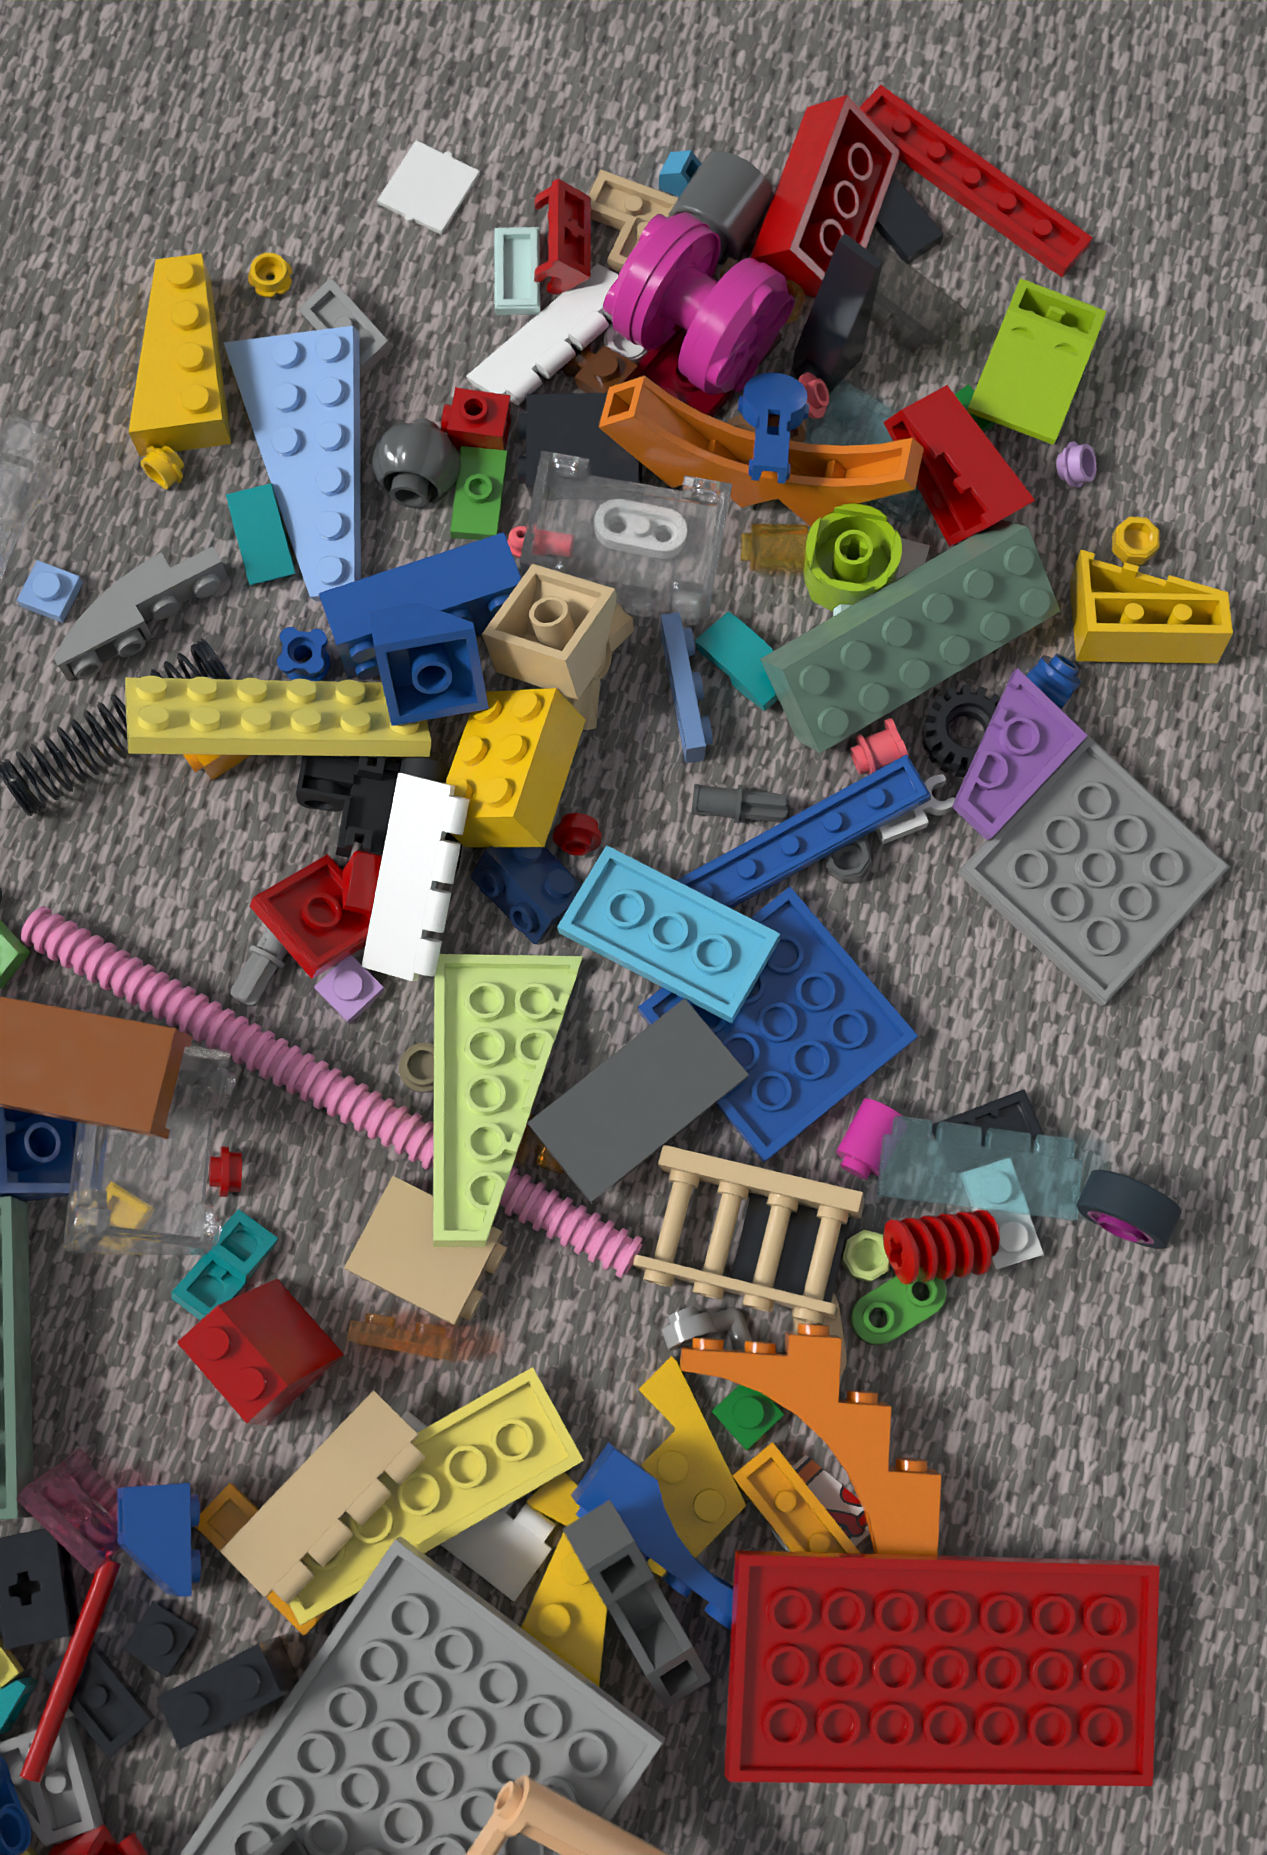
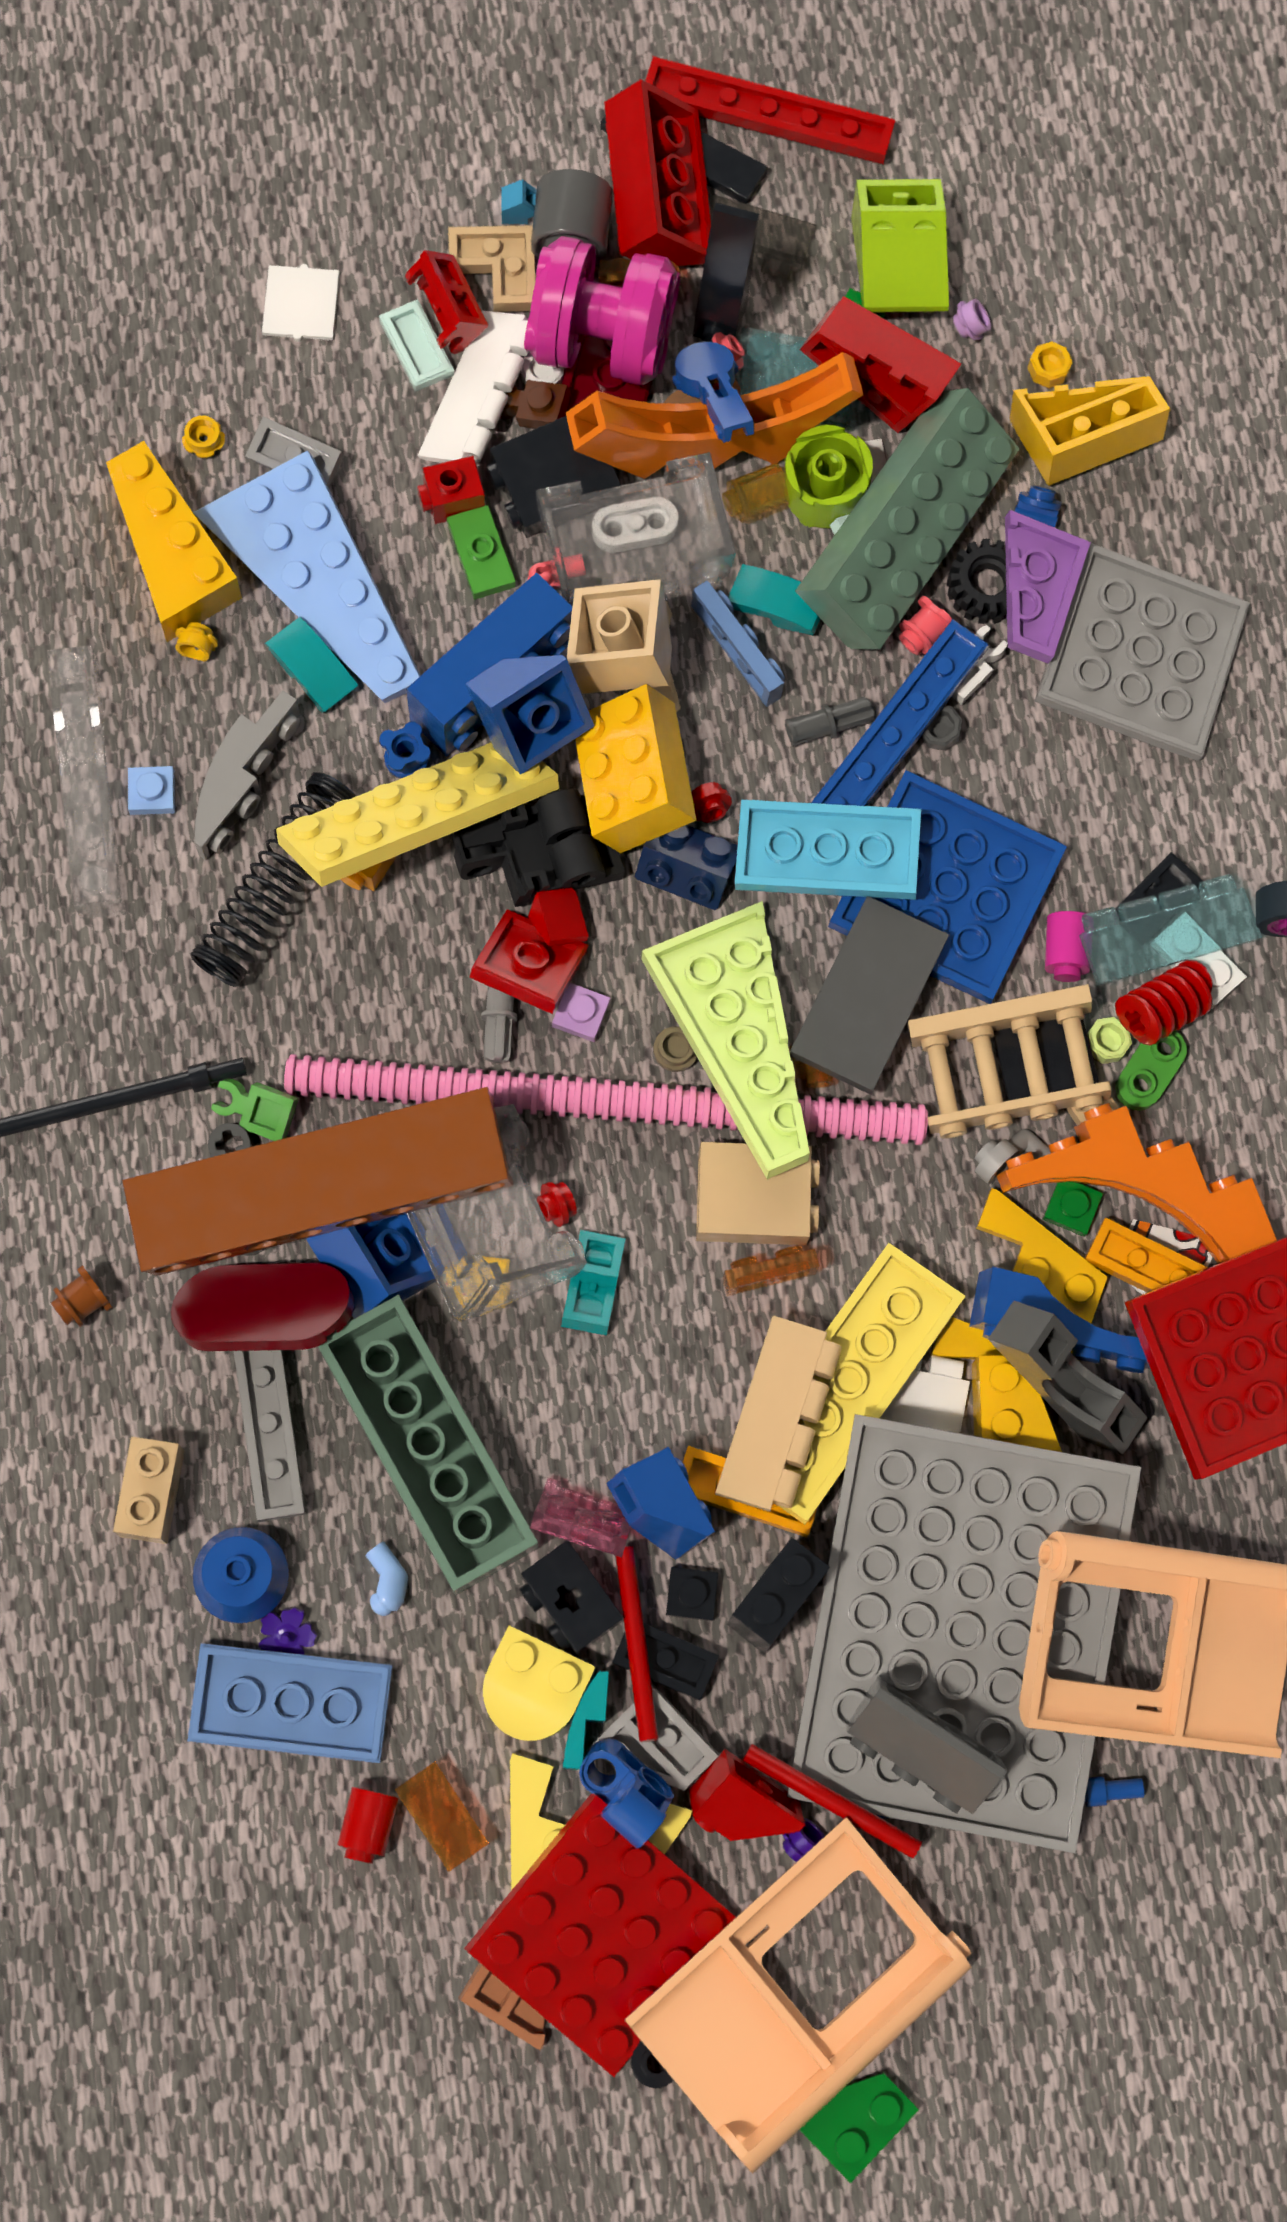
camera: 30 degrees left, 0 degrees up
(260, 1351) = (663, 1331): red slope -> none
(410, 866) = (594, 894): white windscreen -> none
(414, 457) = (420, 544): dark grey plant -> none

